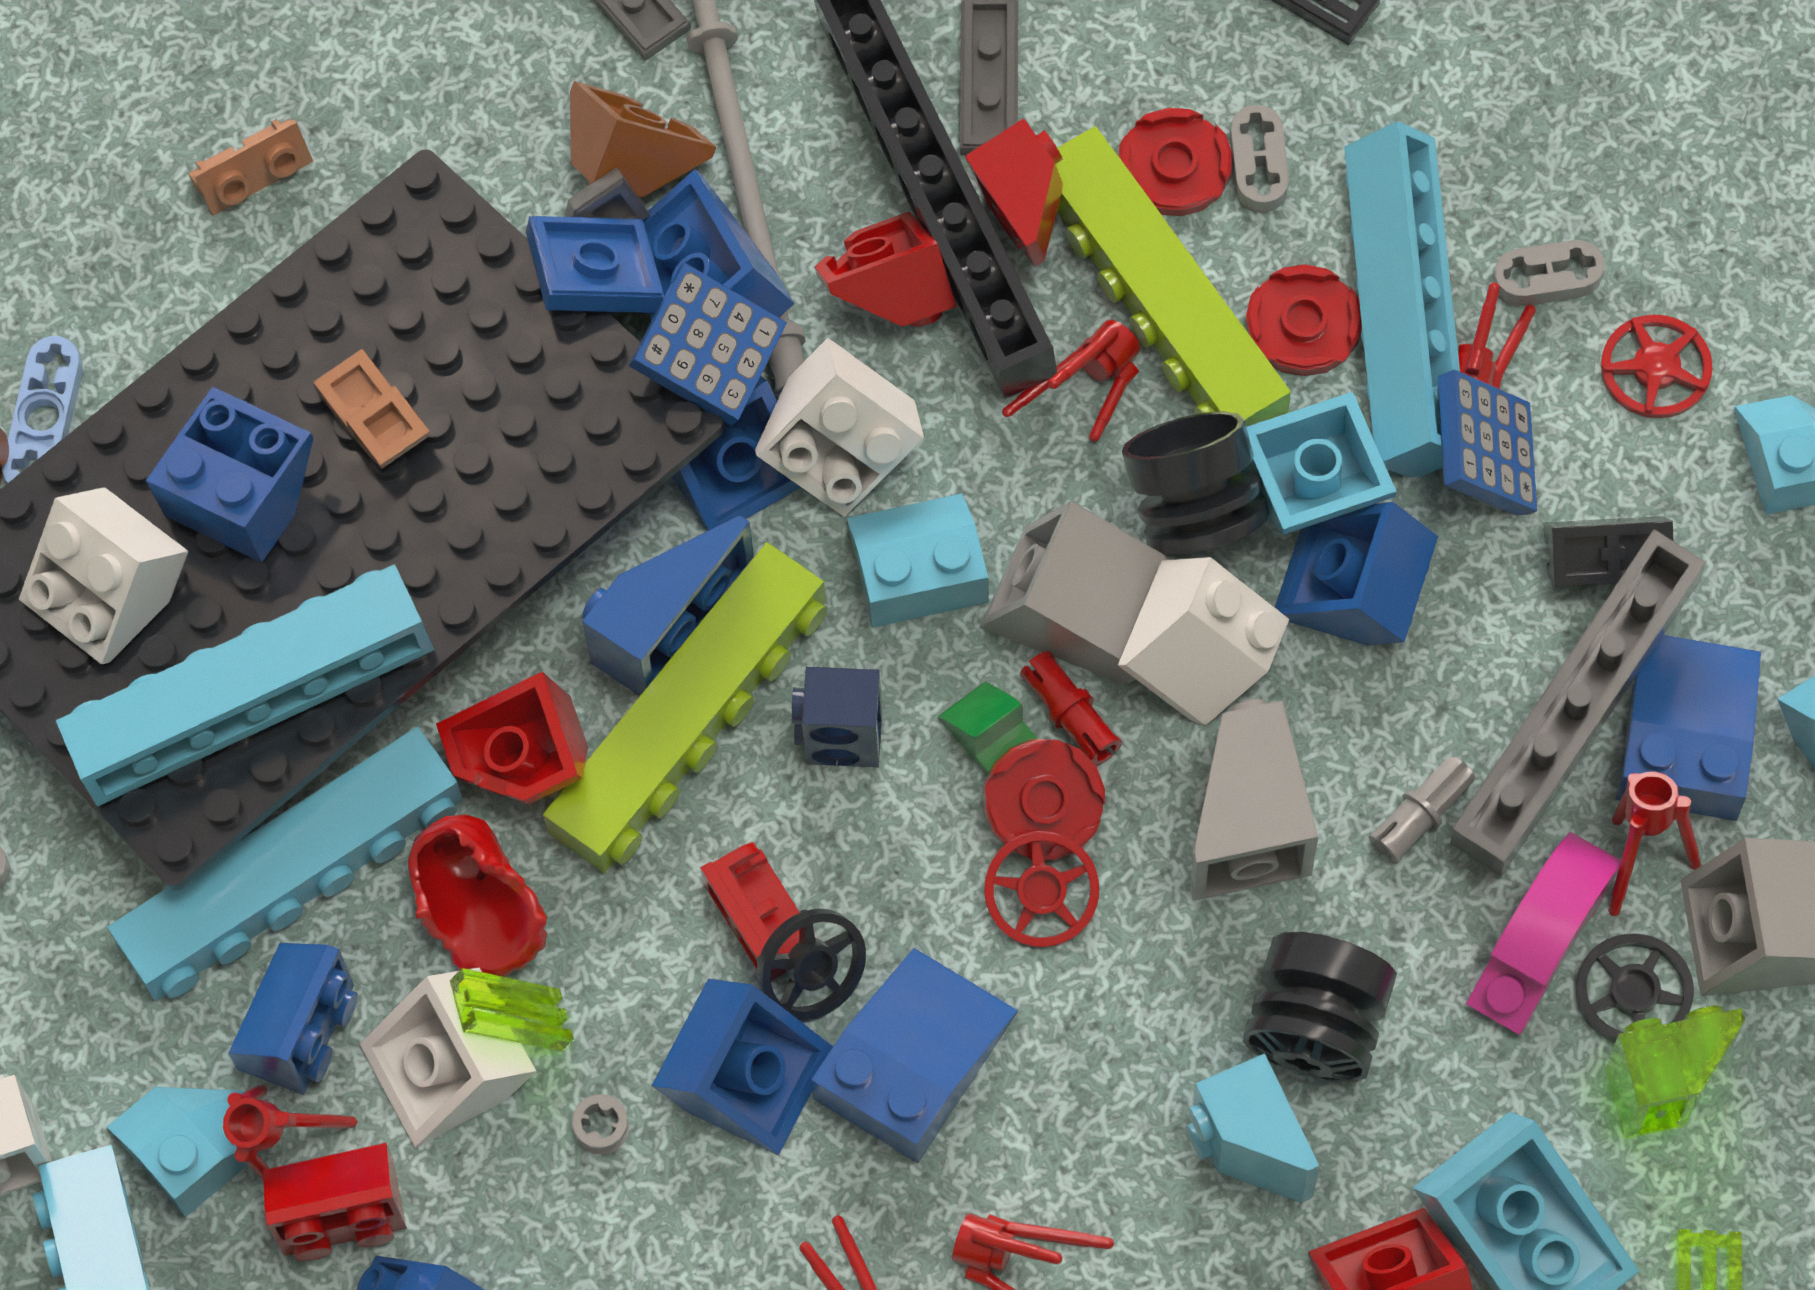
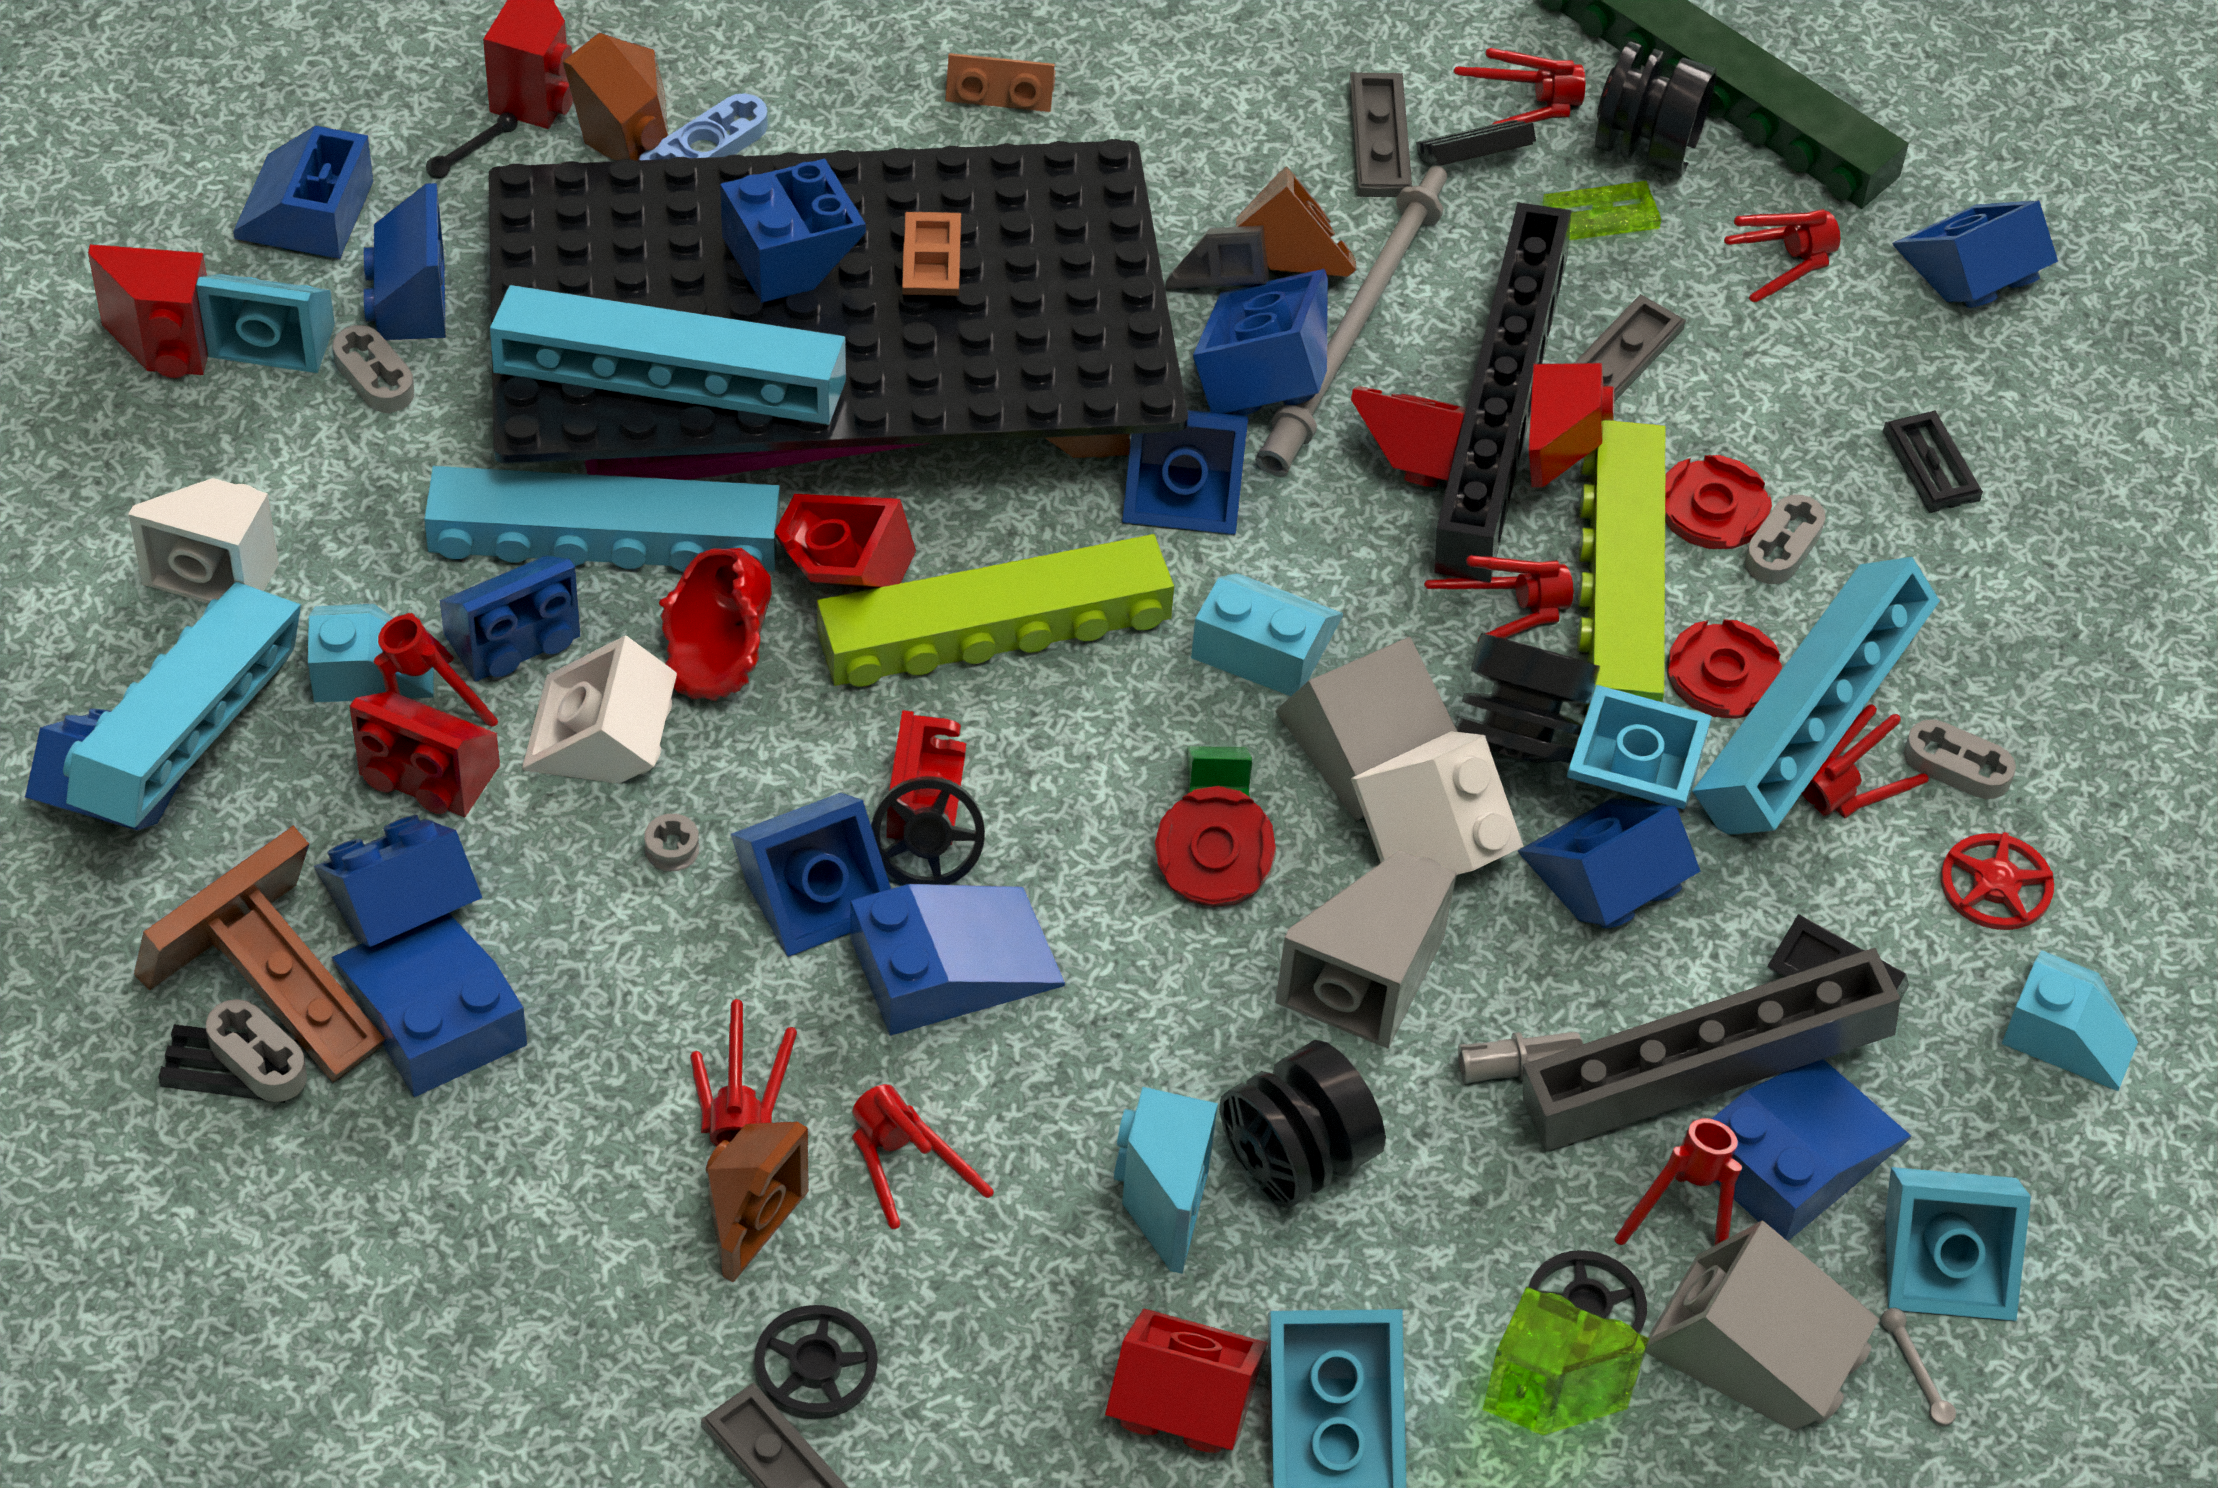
camera: 30 degrees right, 15 degrees down
(101, 572) = (639, 230): white slope -> none
(510, 1000) = (672, 711): clear neon green tile -> none
(594, 264) = (1187, 274): blue tile -> none
(659, 603) = (1039, 512): blue slope -> none
(708, 344) = (1219, 359): tile -> none
(839, 428) = (1278, 495): white slope -> none
(839, 716) = (1103, 680): dark blue brick -> none
(1041, 889) = (1158, 907): red wheel -> none
(1070, 708) = (1295, 804): red pin -> none
(1487, 443) = (1798, 831): blue tile -> none
(1543, 931) = (1539, 1192): dark pink arch -> none

